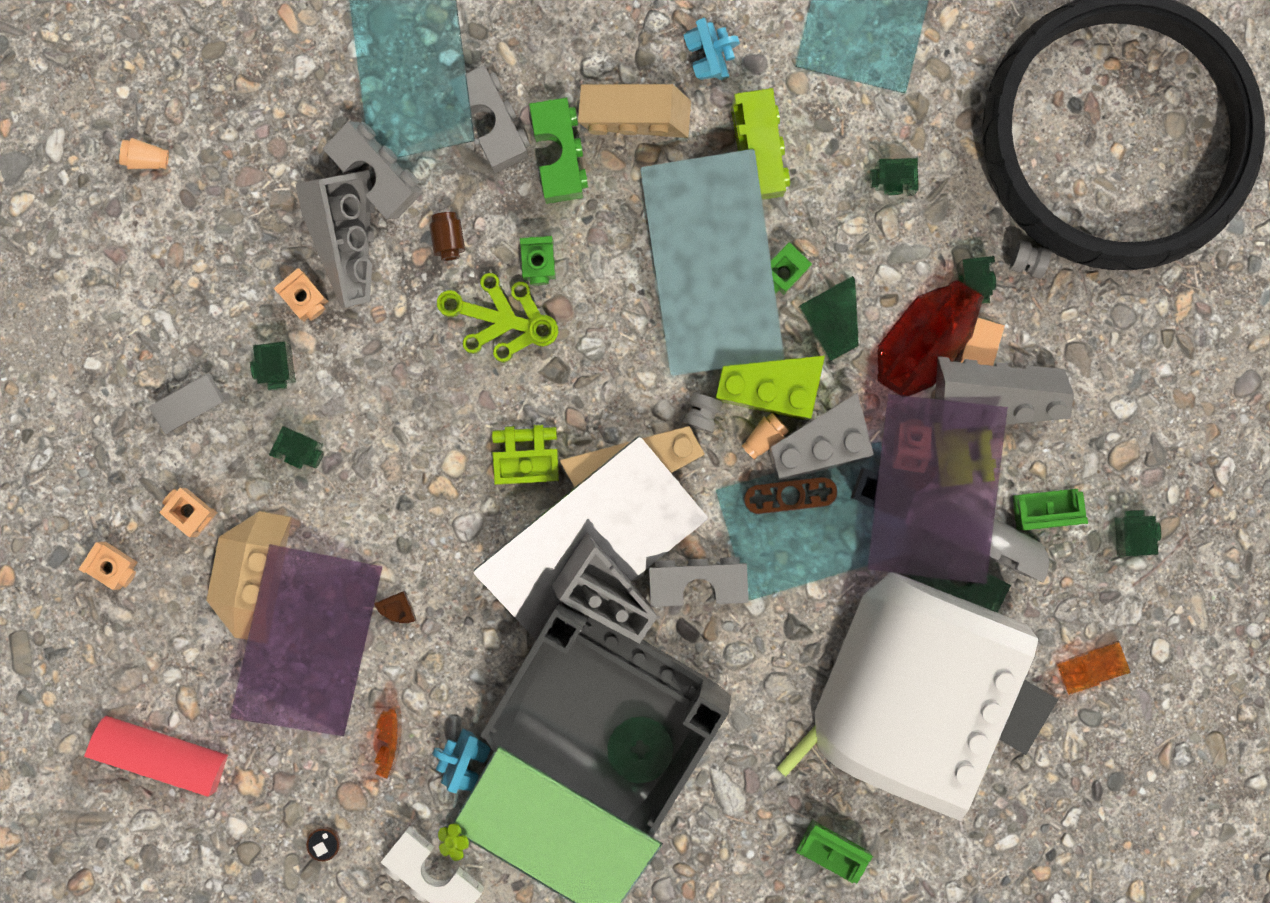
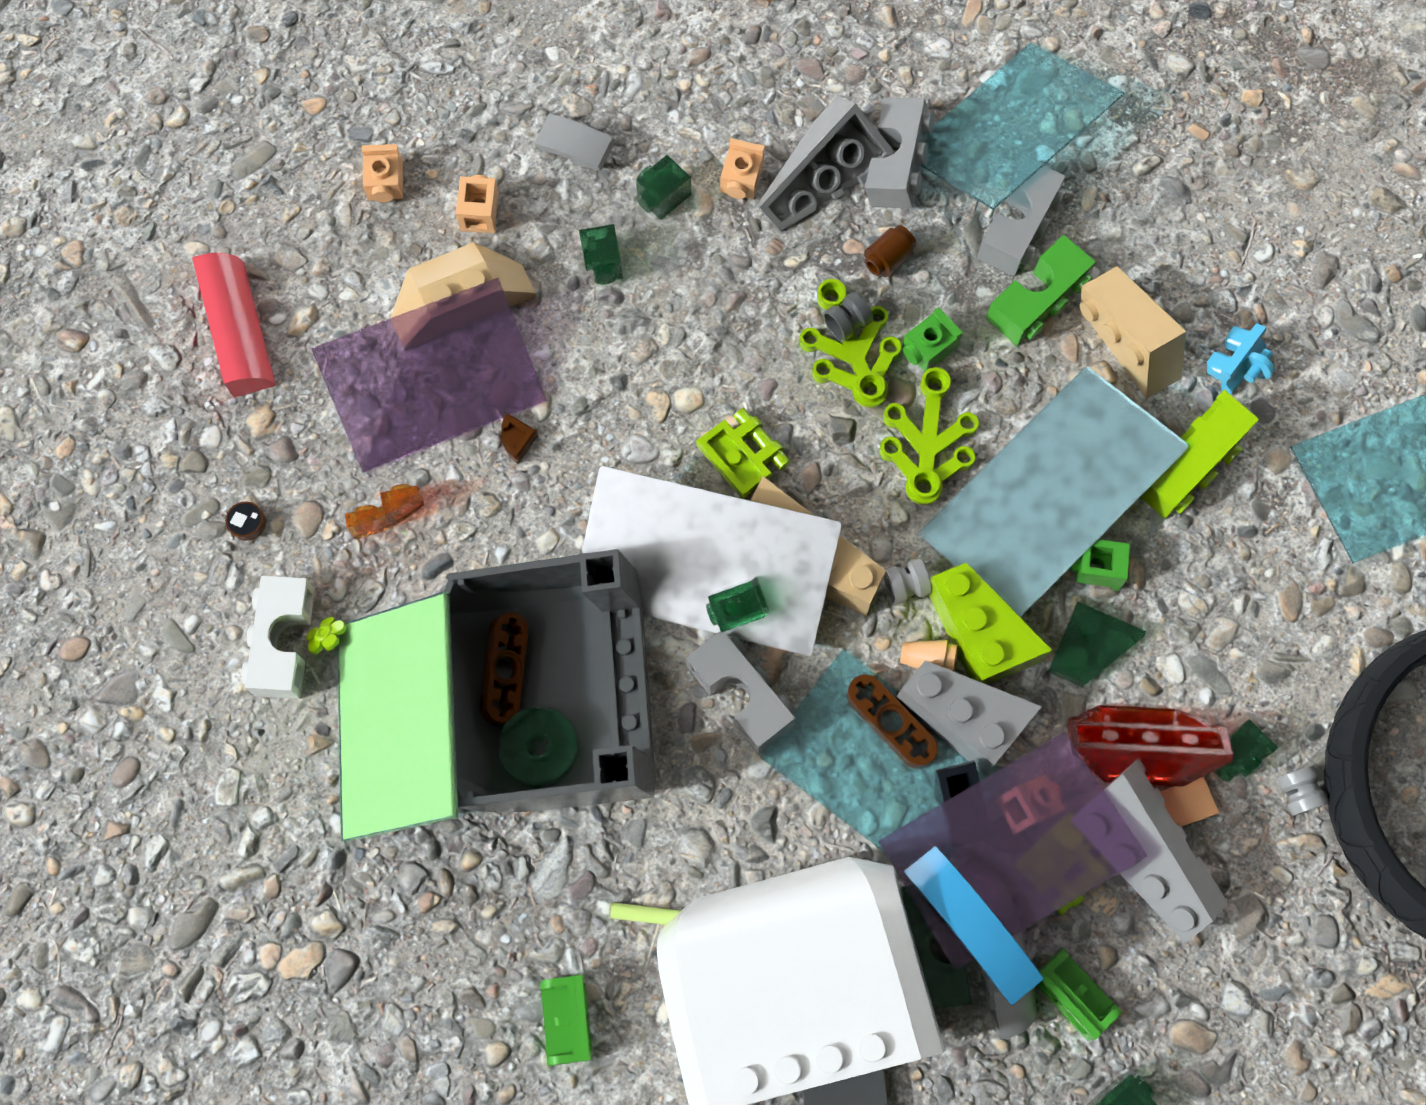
camera: 55 degrees right, 15 degrees down
(455, 759) = (394, 594): medium azure hips -> none
(476, 303) = (848, 316): none -> dark grey wheel
(543, 727) = (496, 639): none -> reddish brown beam
(603, 592) = (668, 601): light grey wedge -> none
(611, 320) = (928, 443): none -> lime plant
(641, 546) = (737, 605): none -> clear green brick
(895, 176) = (1271, 602): clear green brick -> none
(967, 552) = (974, 925): none -> dark azure slope

